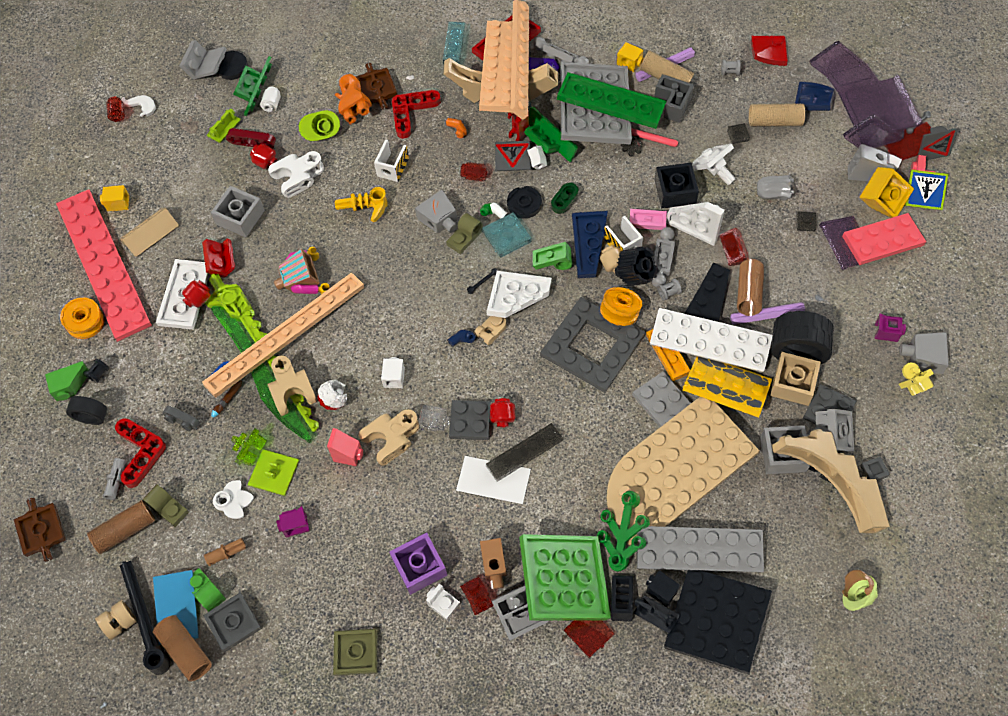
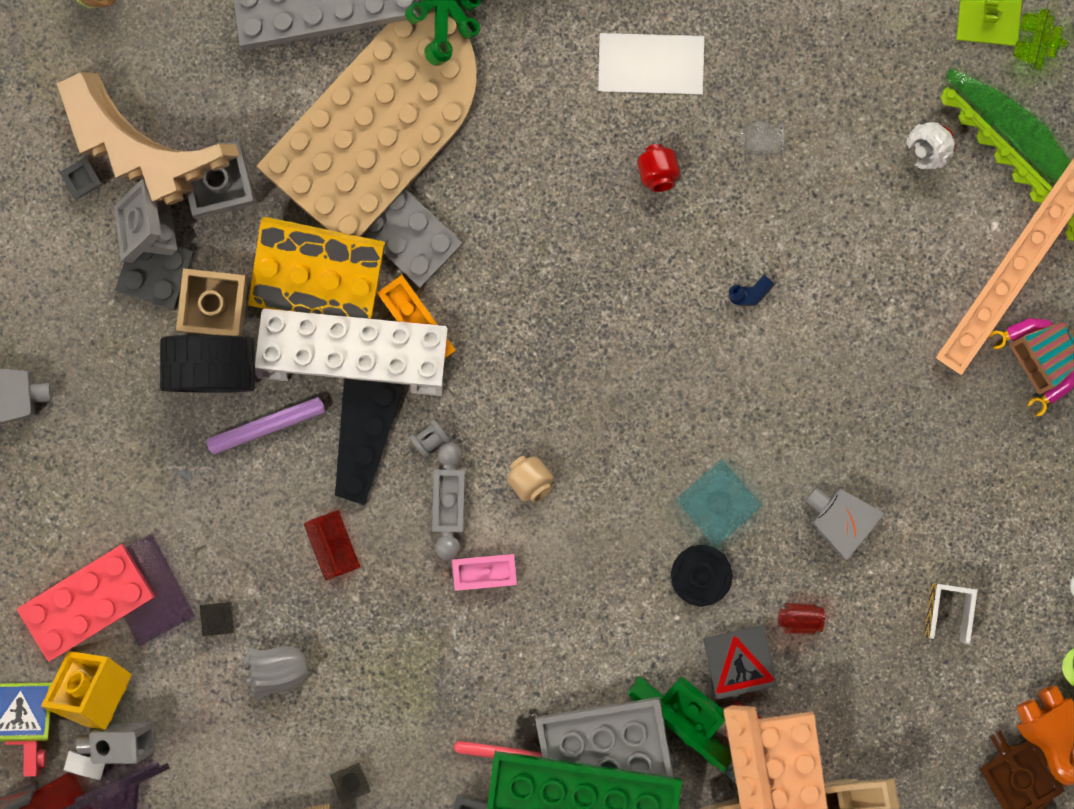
camera: 165 degrees right, 25 degrees up
(288, 384) = (1006, 150): tan piece -> none
(344, 448) = (886, 58): coral slope -> none
(367, 200) = (975, 524): yellow piece -> none
(393, 373) = (846, 206): white brick -> none
(394, 431) = (820, 104): tan piece -> none
(404, 108) = (957, 739): red beam -> none
(458, 124) = (850, 716): orange arm -> none
(468, 230) = (789, 489): olive plate -> none
(469, 420) = (707, 152): dark grey plate -> none
(470, 289) = (756, 386): black hinge -> none
(492, 208) = (751, 549): arm -> none
(493, 324) = (700, 327): tan plate -> none
(515, 292) = (679, 385): white plate -> none
(524, 452) = (612, 113): clear smoke plate -> none
(537, 157) = (695, 667): white piece -> none
(557, 255) = (632, 465): bright green plate -> none
(563, 199) = (633, 591): dark green plate -> none
(588, 239) = (579, 520): dark blue wing -> none
(600, 375) = (590, 292): dark grey plate -> none
(621, 306) = (493, 401): light orange wheel -> none
(629, 230) = (491, 517): white piece -> none
(636, 266) = (489, 460): black brick -> none
(676, 185) = (444, 643): black brick -> none
(698, 220) = (403, 570): white plate -> none
(713, 161) = (390, 708): white piece -> none
(750, 287) = (296, 448): medium nougat piece -> none
(889, 328) = (68, 429): magenta window -> none
(917, 381) = (25, 334): light yellow hips -> none

